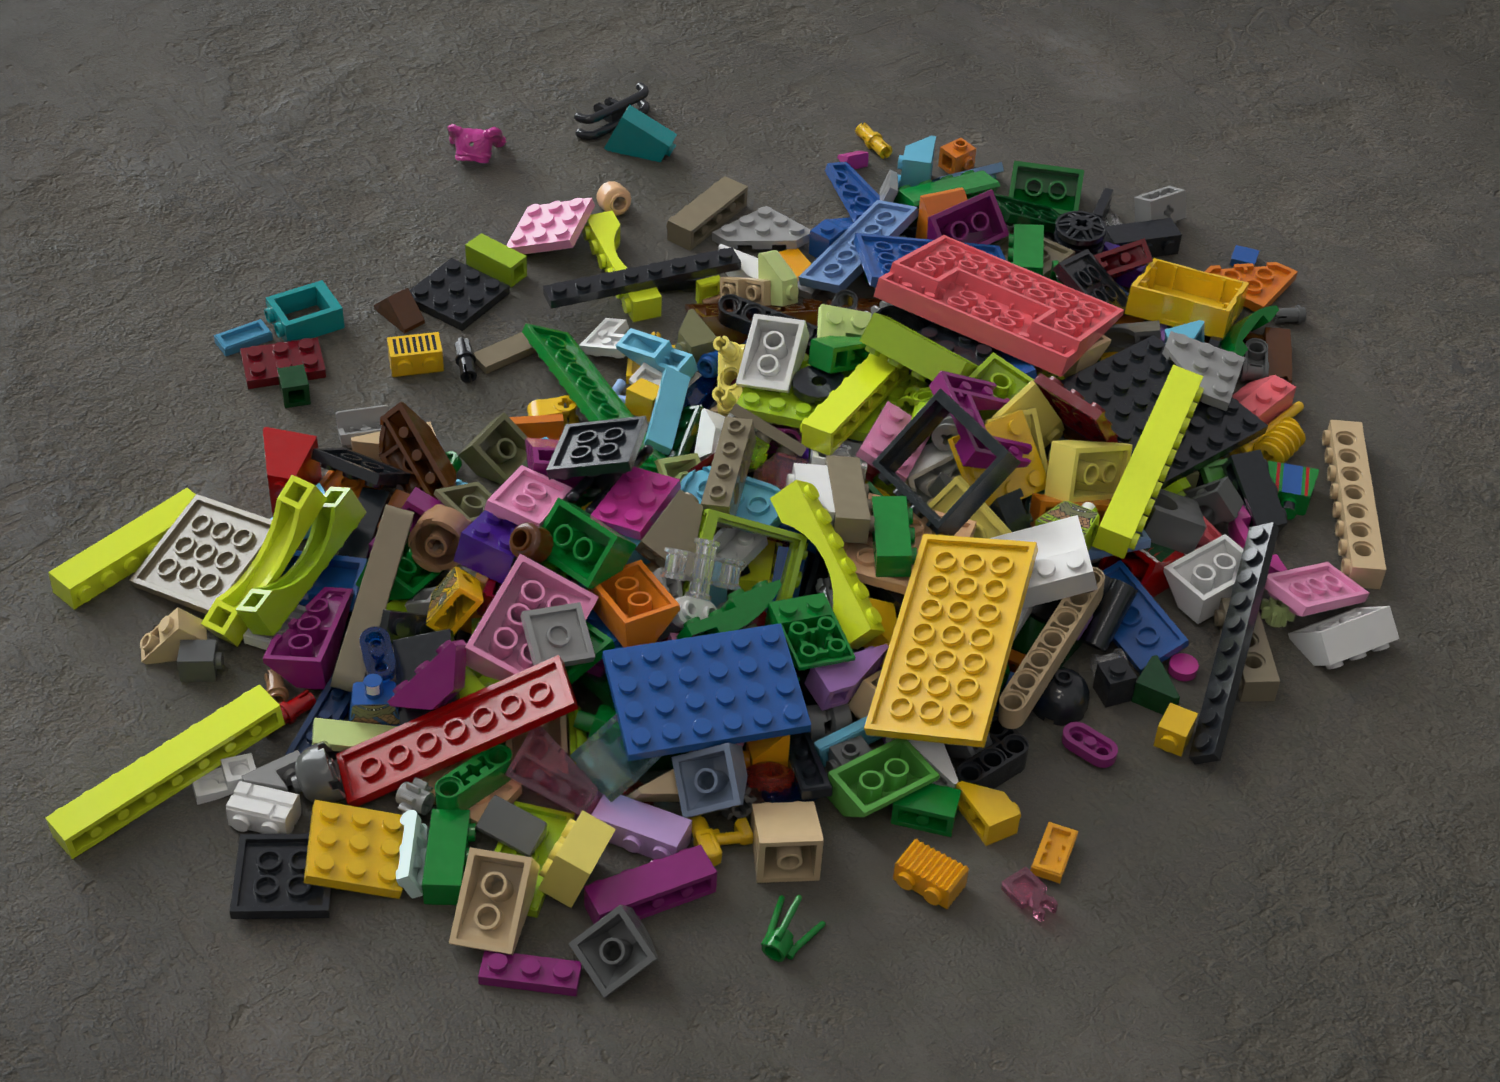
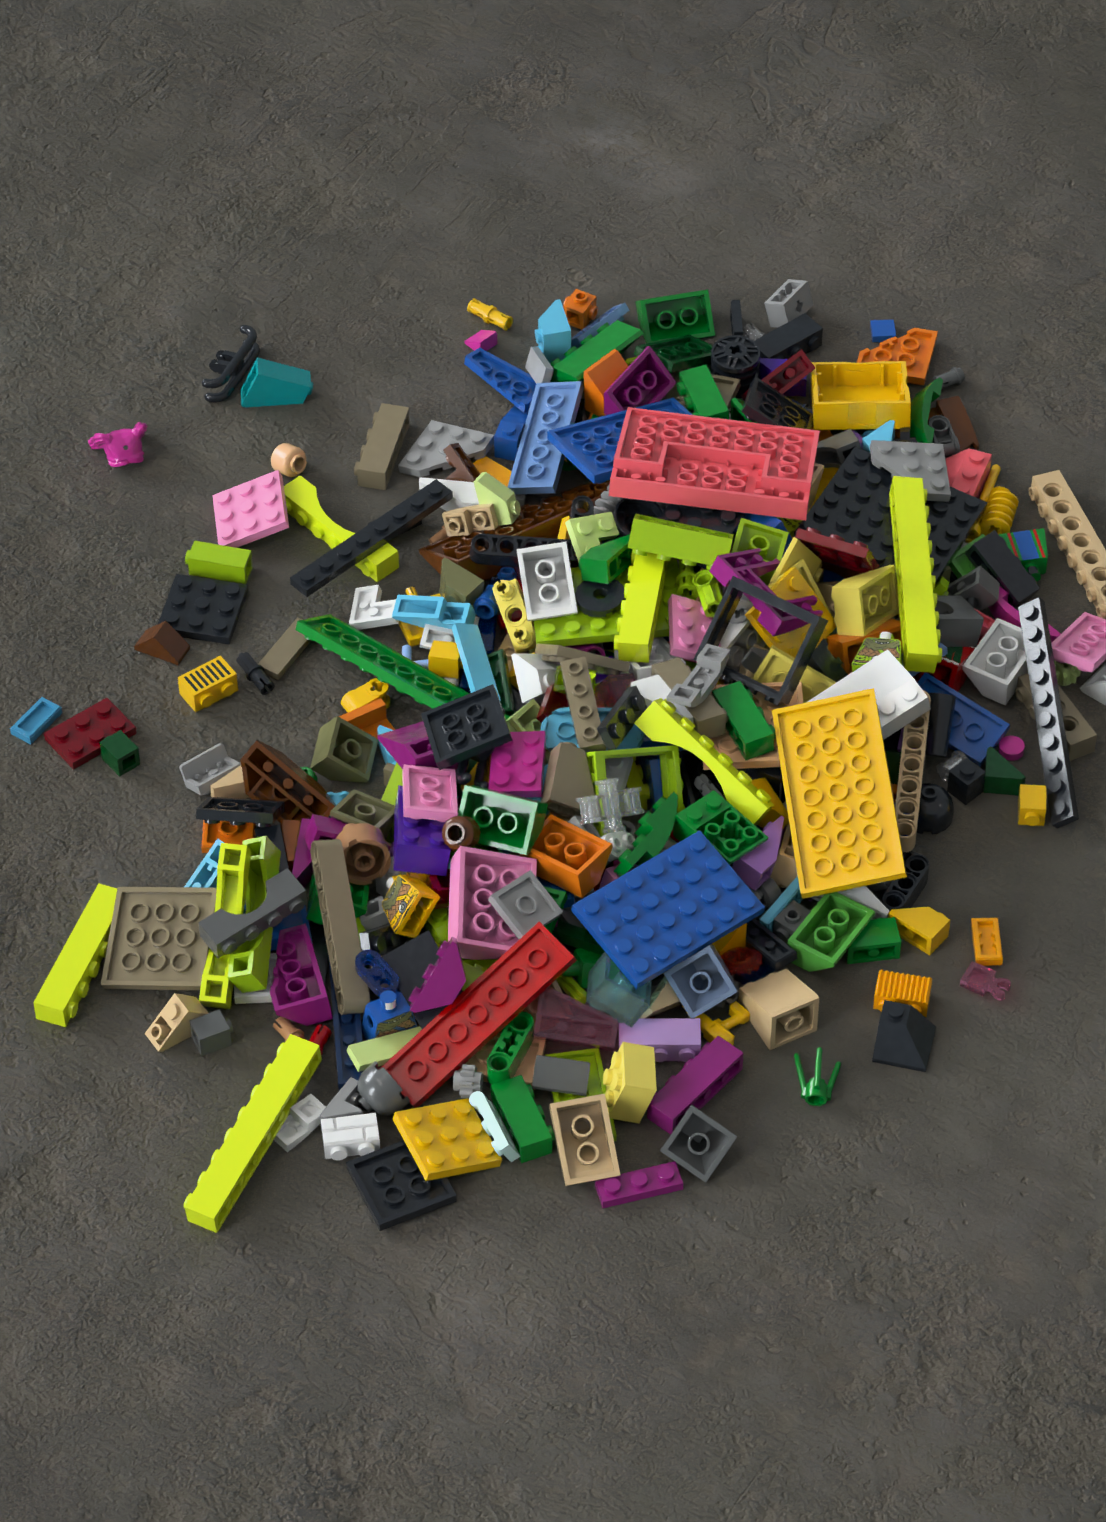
camera: 20 degrees left, 5 degrees up
(261, 565) = (227, 931): none -> dark grey arch
(288, 455) = (173, 835): red slope -> none
(307, 326) = (89, 657): teal window -> none
(707, 287) = (430, 526): neon yellow tile -> none
(757, 489) = (622, 717): none -> black plate
(765, 239) = (458, 459): none -> reddish brown slope
(882, 472) = (703, 678): none -> light grey slope
(906, 920) = (903, 1037): none -> black slope
(1091, 746) = (971, 842): magenta plate -> none

